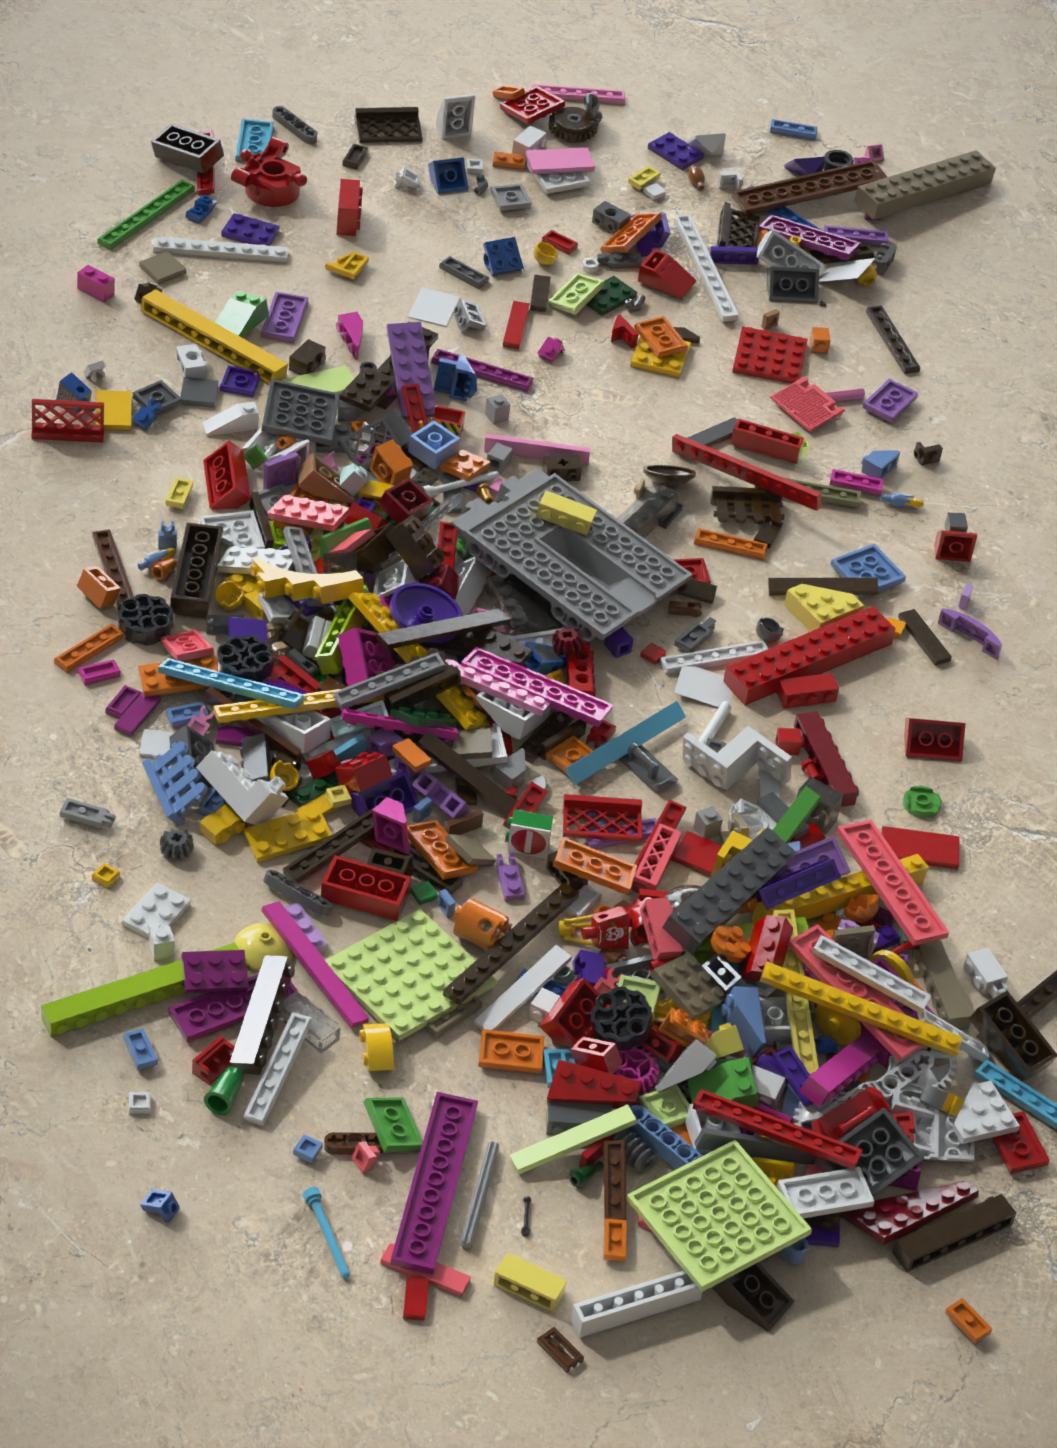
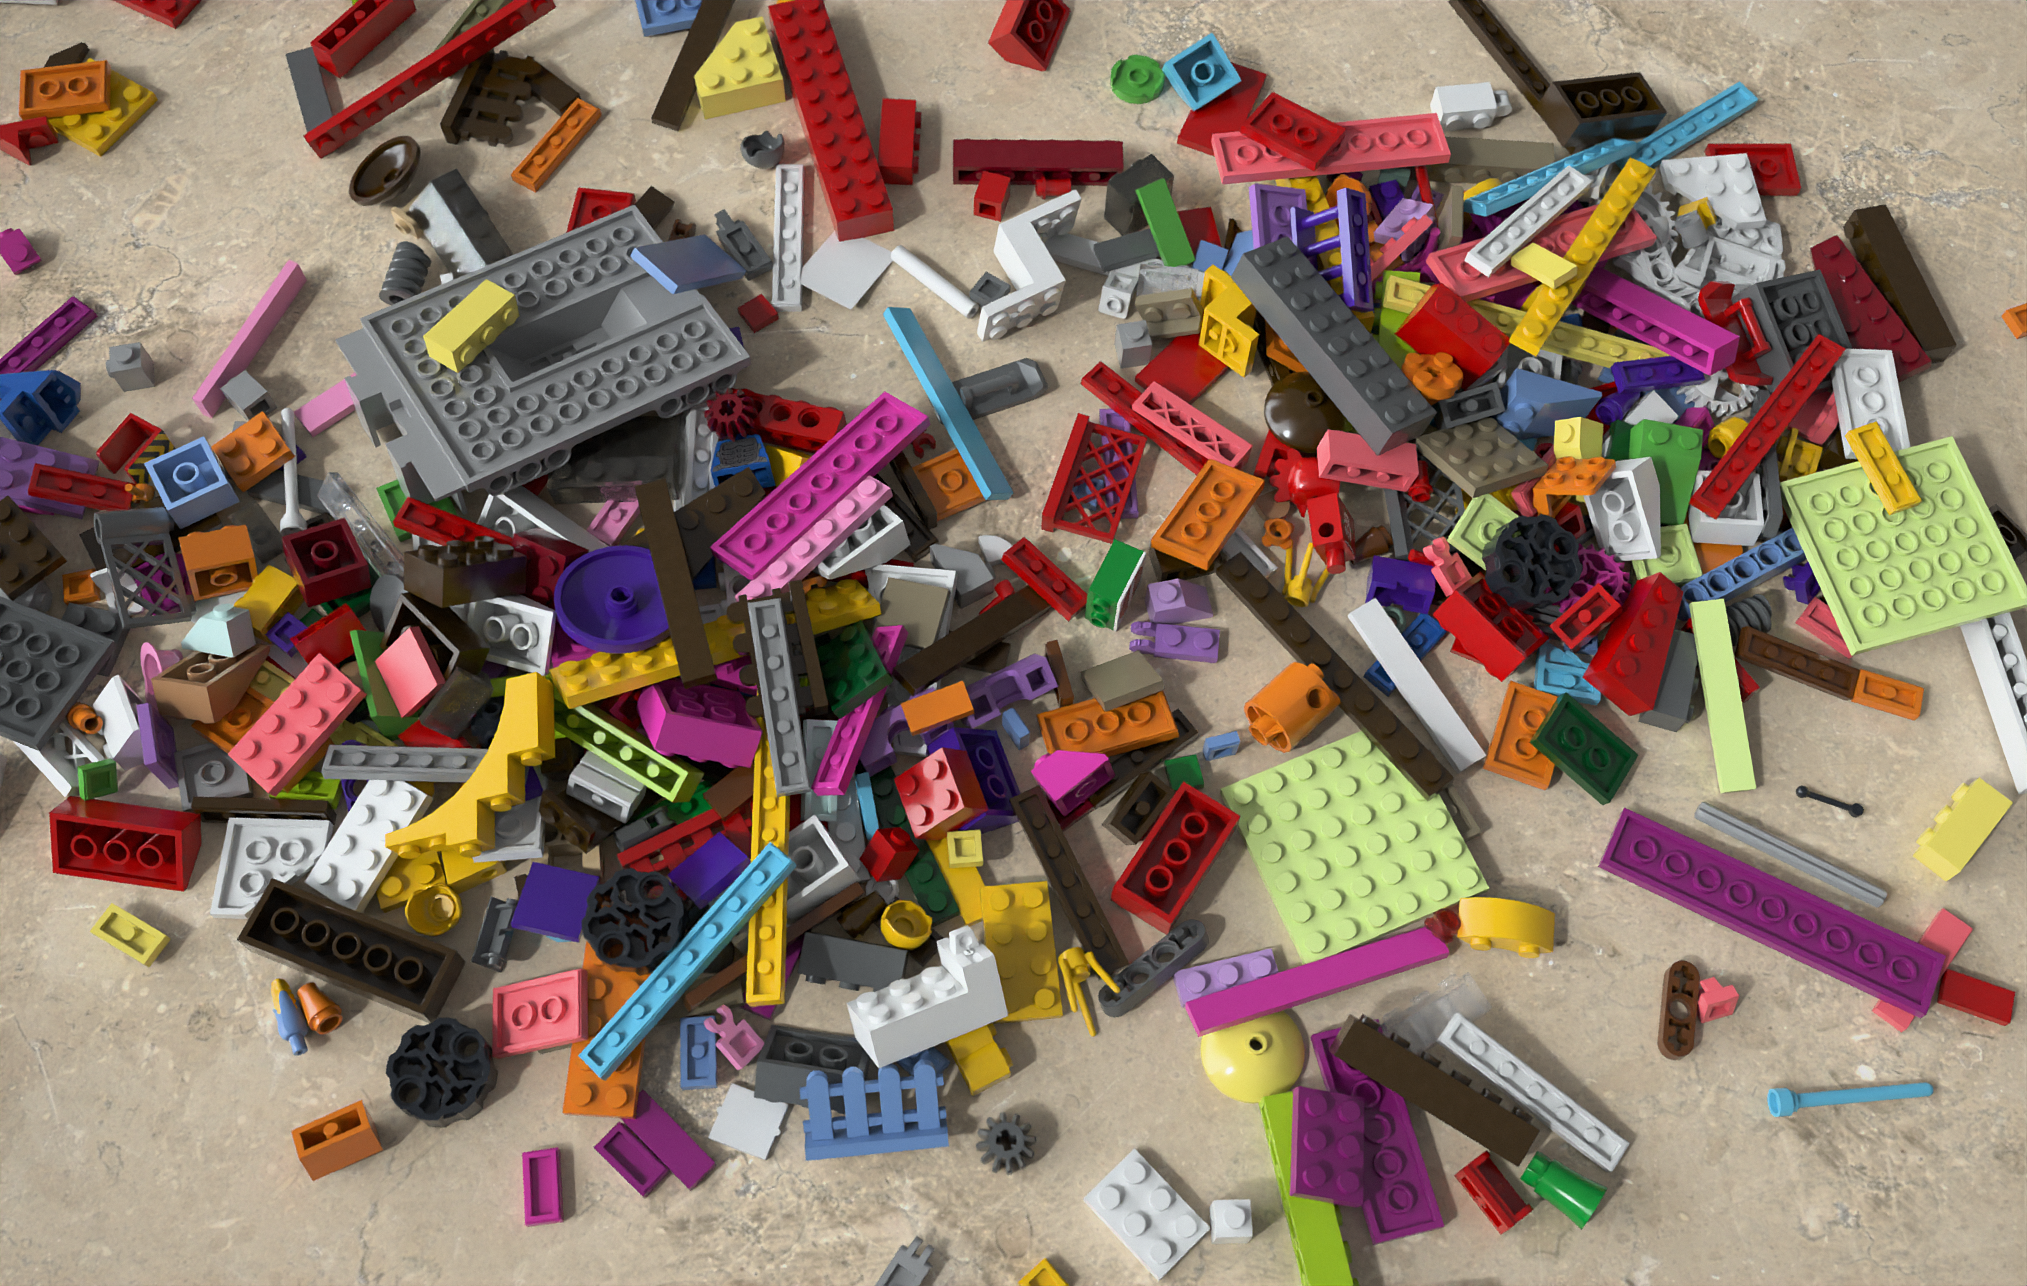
camera: 70 degrees left, 20 degrees up
(89, 648) = (475, 1193): orange tile -> none
(112, 564) = (278, 1100): reddish brown tile -> none
(167, 536) = (246, 984): medium blue plate -> none
(285, 857) = (1075, 969): none -> yellow plant
(307, 1148) = (1688, 1085): medium blue plate -> none
(368, 1012) = (1443, 925): none -> clear red plate
(393, 1124) = (1655, 943): bright green tile -> none
(483, 491) = (323, 443): pearl gold pin -> none
(509, 1073) = (1584, 748): none -> dark green plate
(534, 870) = (1177, 602): none -> lavender slope
(542, 1004) = (1451, 665): white brick -> none
(564, 465) = (309, 315): dark brown brick -> none
(581, 1176) = (1770, 704): dark green cone -> none
(606, 497) = (405, 273): none -> dark grey piece
(658, 601) = (688, 263): none -> medium blue tile
(767, 1190) = (1883, 468): none -> yellow tile
(823, 919) = (1394, 248): none -> coral plate
(831, 977) = (1544, 265): none -> light yellow tile
(888, 853) = (1293, 131): none -> red plate
(906, 1122) = (1733, 274): red plate -> none
(933, 1004) = (1529, 184): none -> medium azure tile
(935, 822) = (1201, 72): none -> medium azure slope

